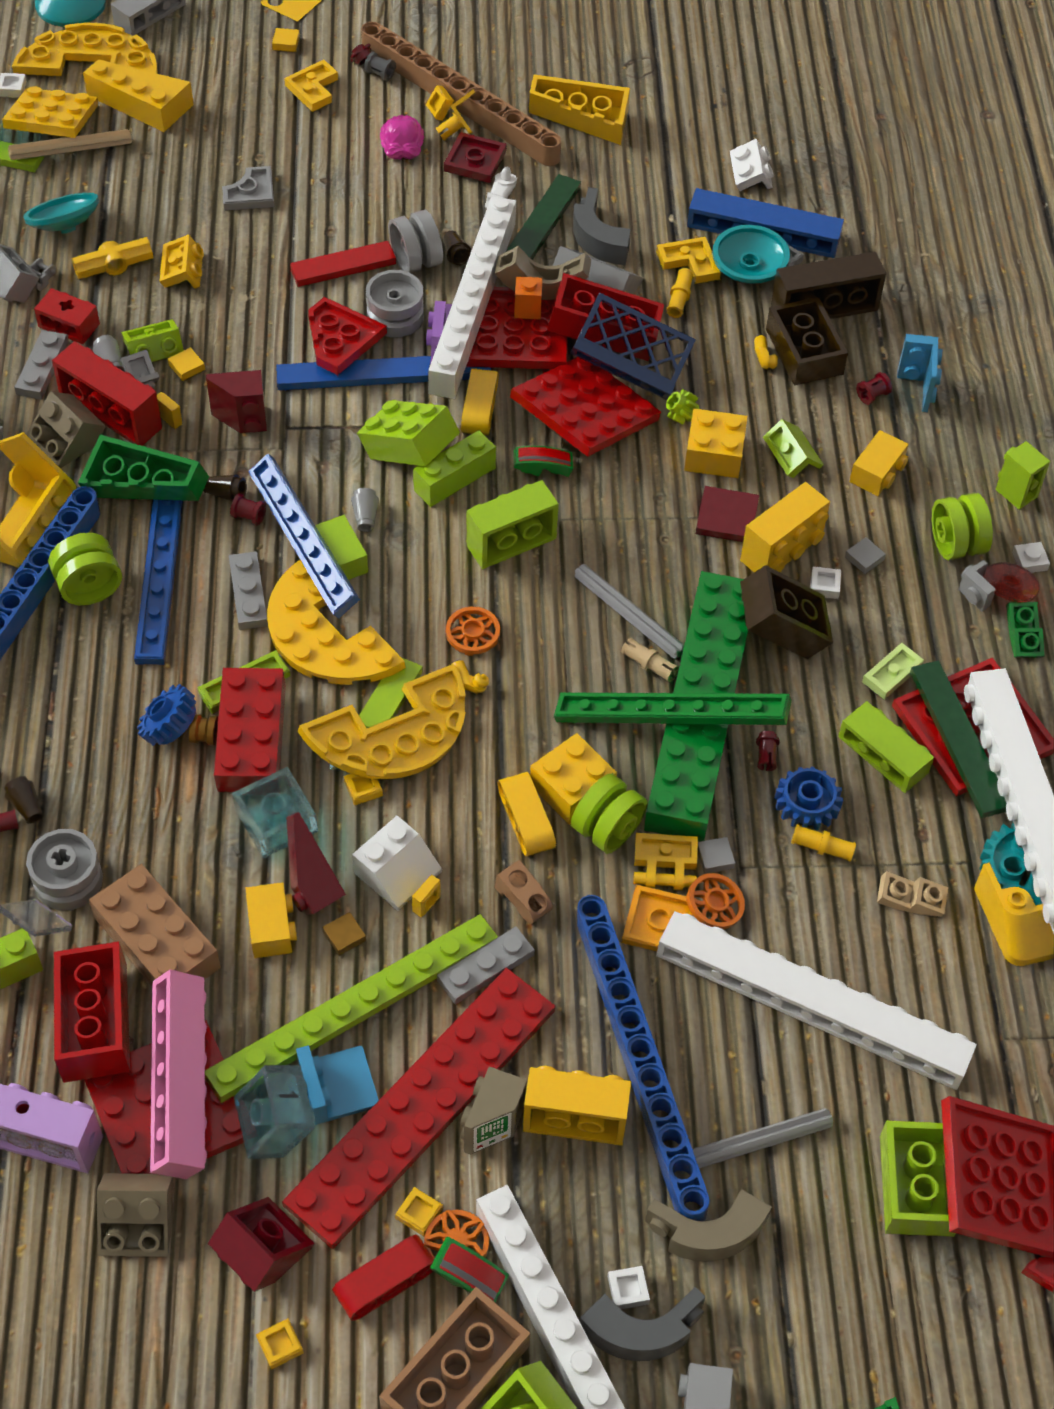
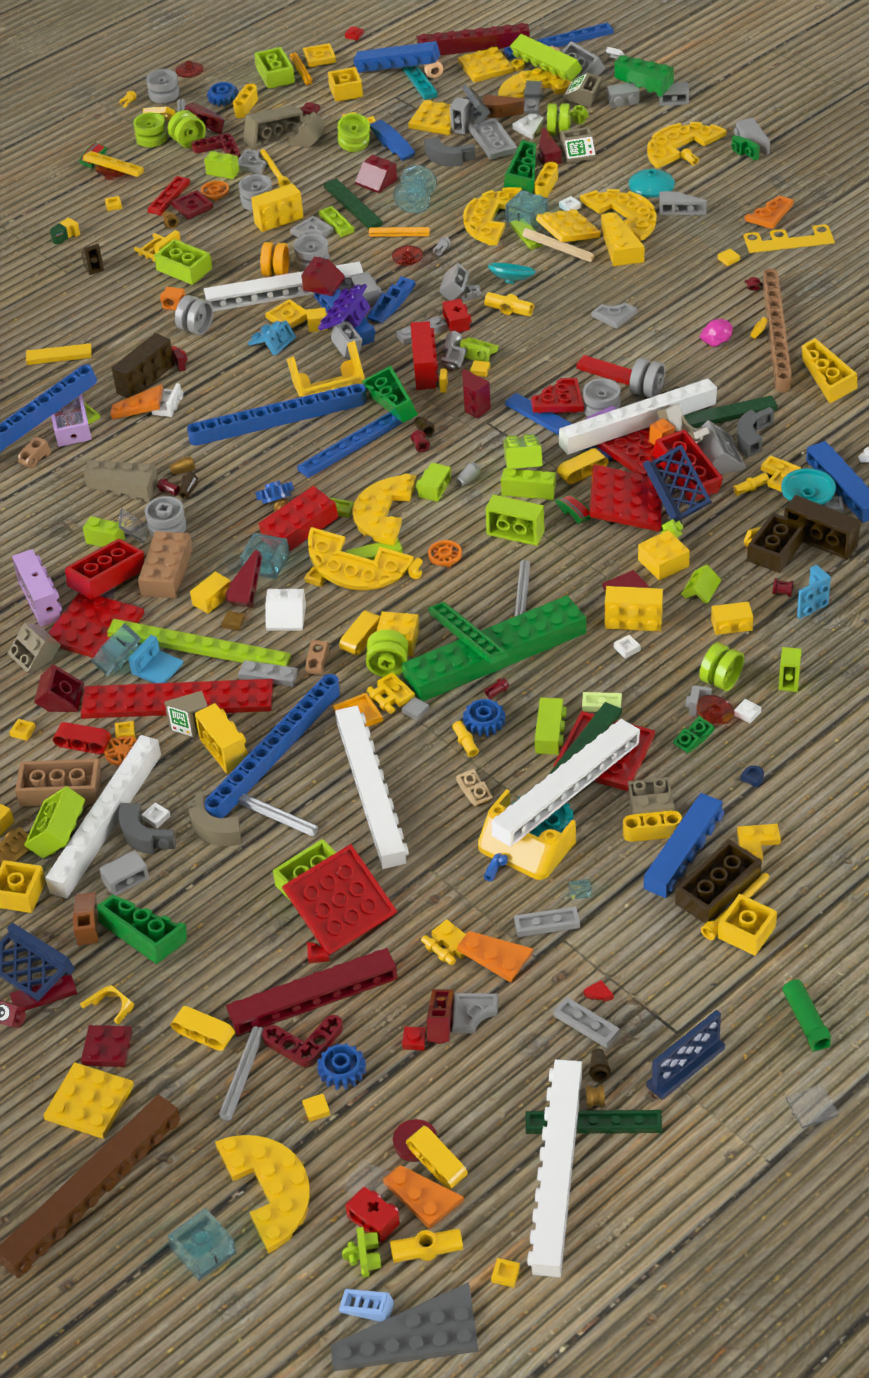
camera: 55 degrees right, 10 degrees down
(64, 428) = (394, 354): dark tan slope -> none
(85, 569) = (319, 415): lime wheel -> none
(178, 1075) = (100, 609): bright pink brick -> none
(181, 262) = (537, 325): yellow bracket -> none
(248, 590) = (378, 471): light grey plate -> none
(304, 536) = (422, 463): tile -> none
(310, 82) = (706, 282): yellow plate -> none
(380, 66) = (755, 294): dark grey bush -> none
(426, 896) = (279, 630): yellow tile -> none
(456, 121) = (755, 338): yellow bracket -> none
(468, 1269) = (108, 757): slope -> none
(475, 157) = (741, 363): dark red plate -> none
(503, 185) = (739, 383): white piece -> none
(650, 660) = (500, 614): tan pin -> none
(715, 900) = (387, 722): orange wheel -> none
(786, 612) = (576, 636): dark brown brick -> none
(865, 555) = (666, 651): light grey tile -> none

